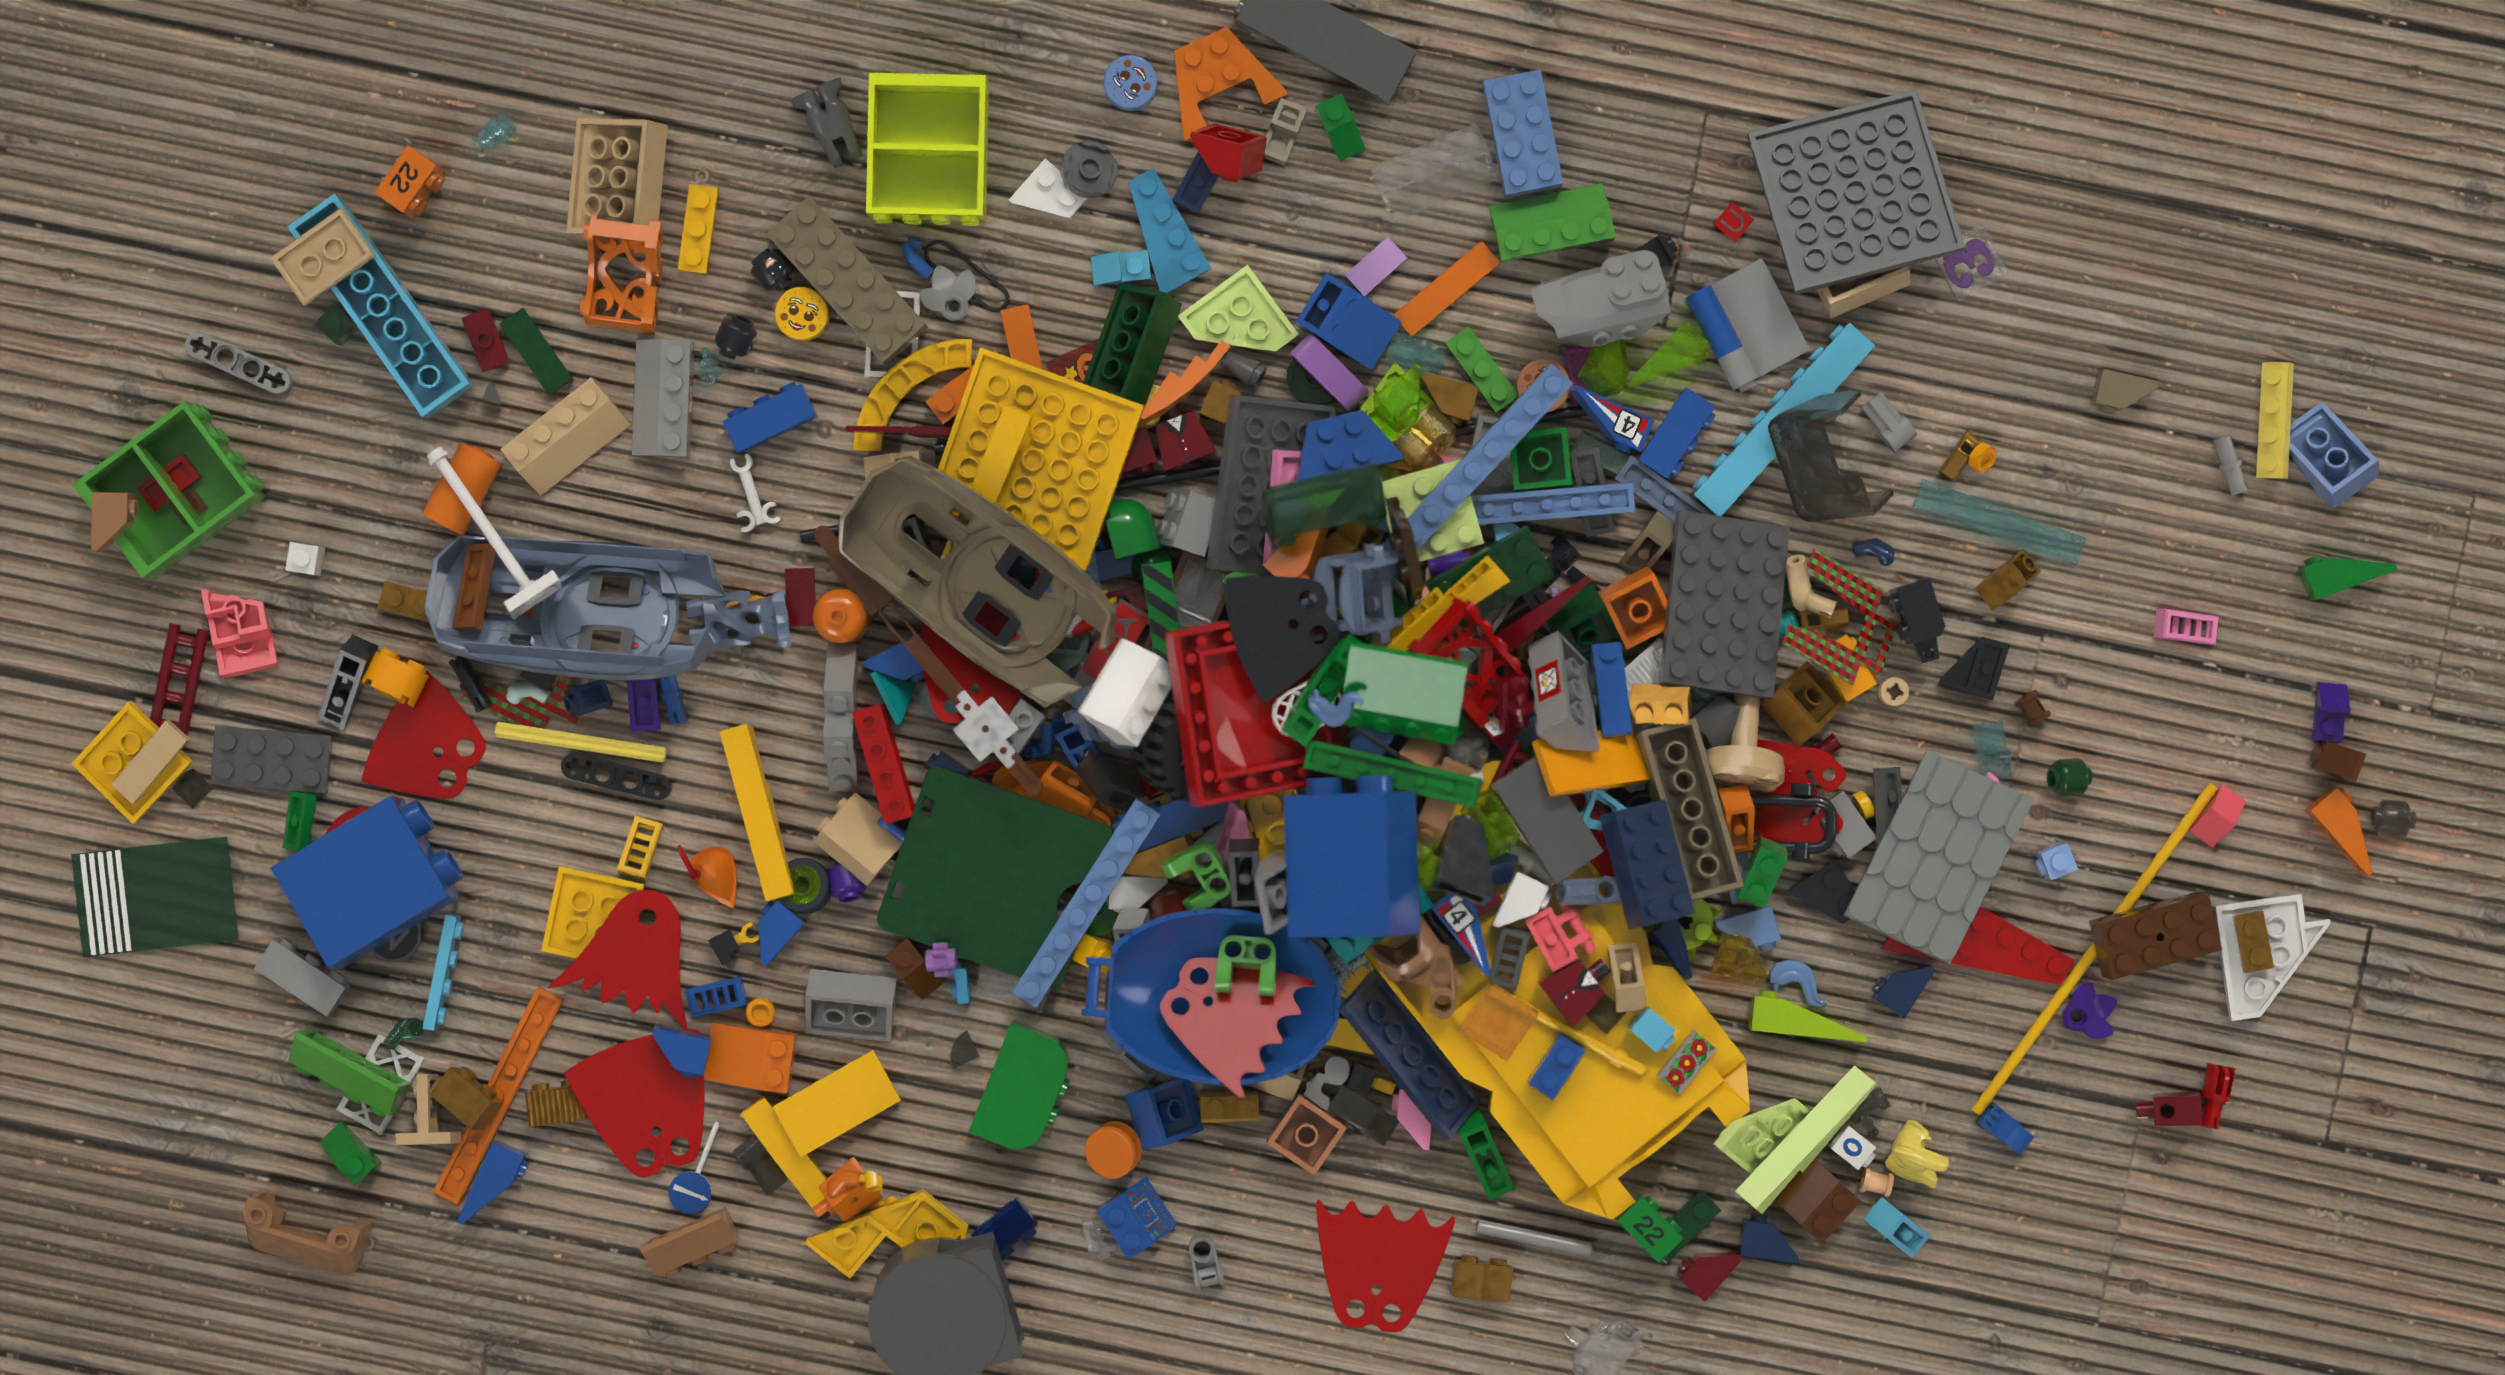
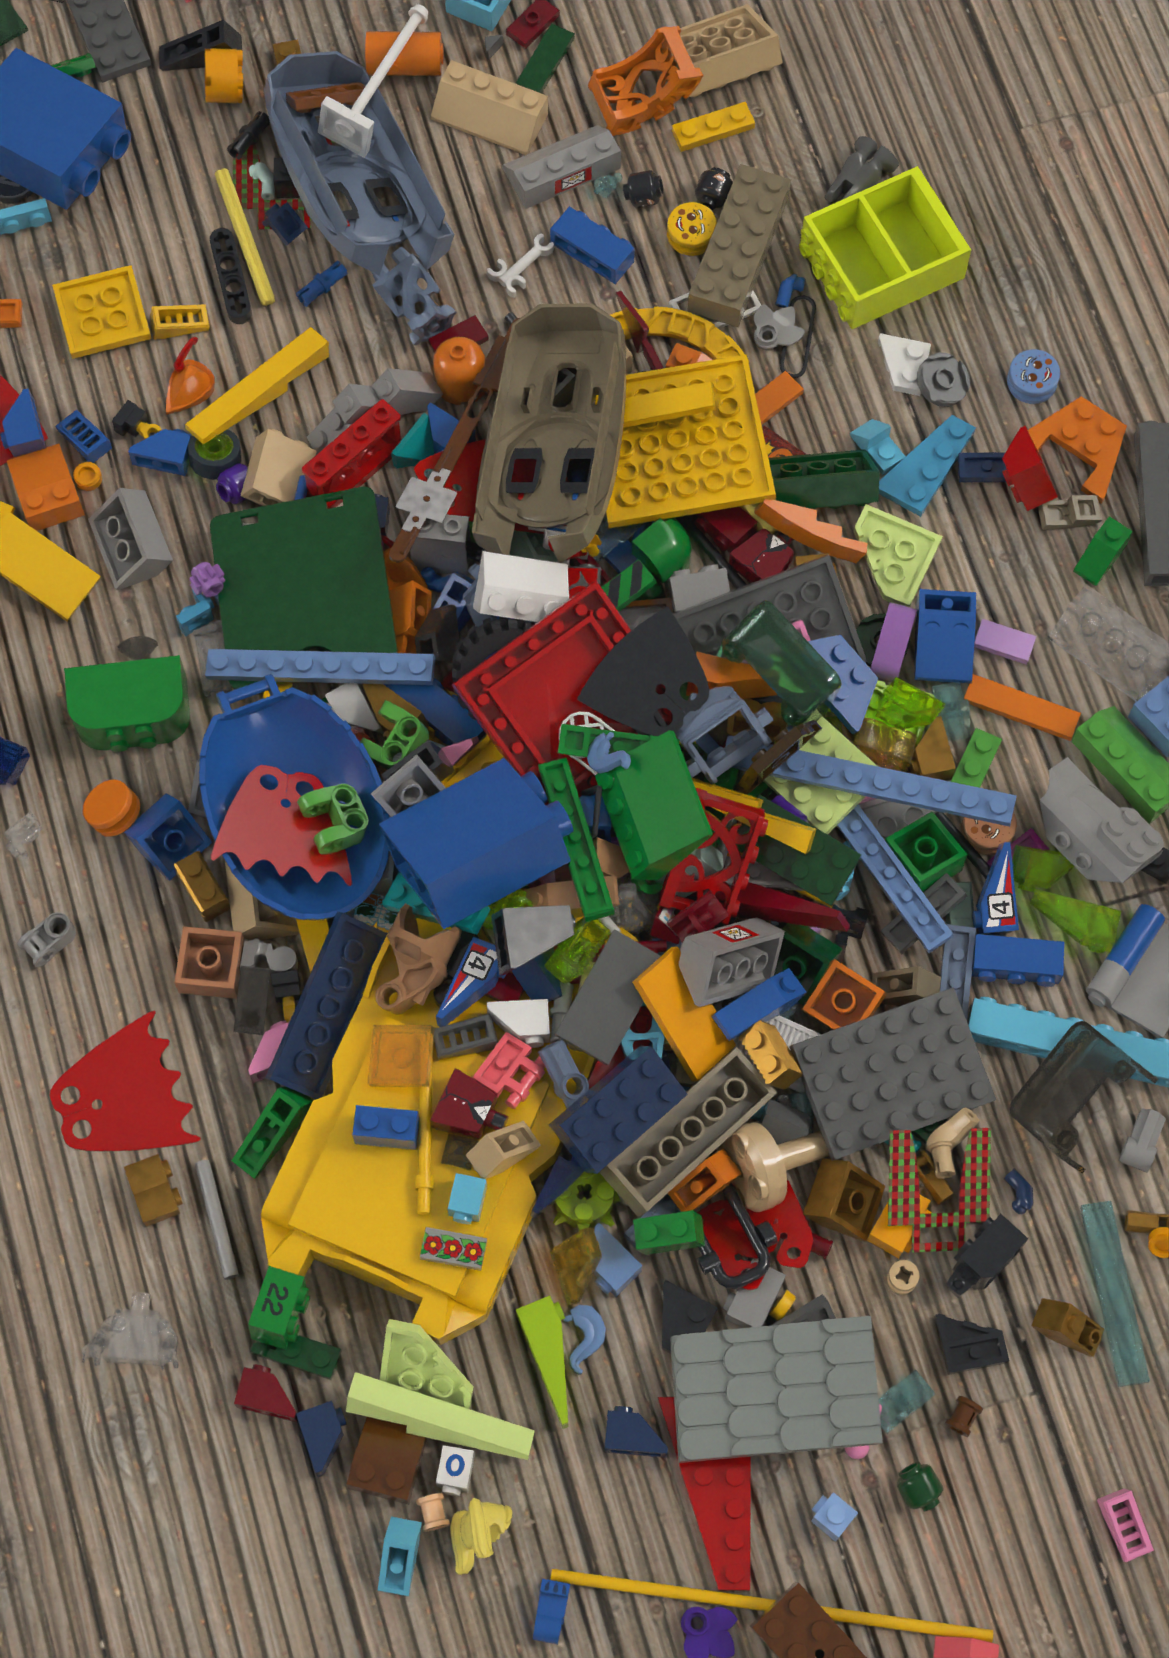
camera: 65 degrees right, 20 degrees down
(405, 745) = (165, 118): red piece -> none
(634, 956) = (84, 355): red piece -> none
(643, 705) = (303, 264): dark purple plate -> none
(911, 967) = (189, 556): reddish brown slope -> none
(1136, 1217) = (59, 859): blue slope -> none
(1245, 369) = (853, 581): dark grey cone -> none
(1862, 1112) = (492, 1462): clear smoke piece -> none

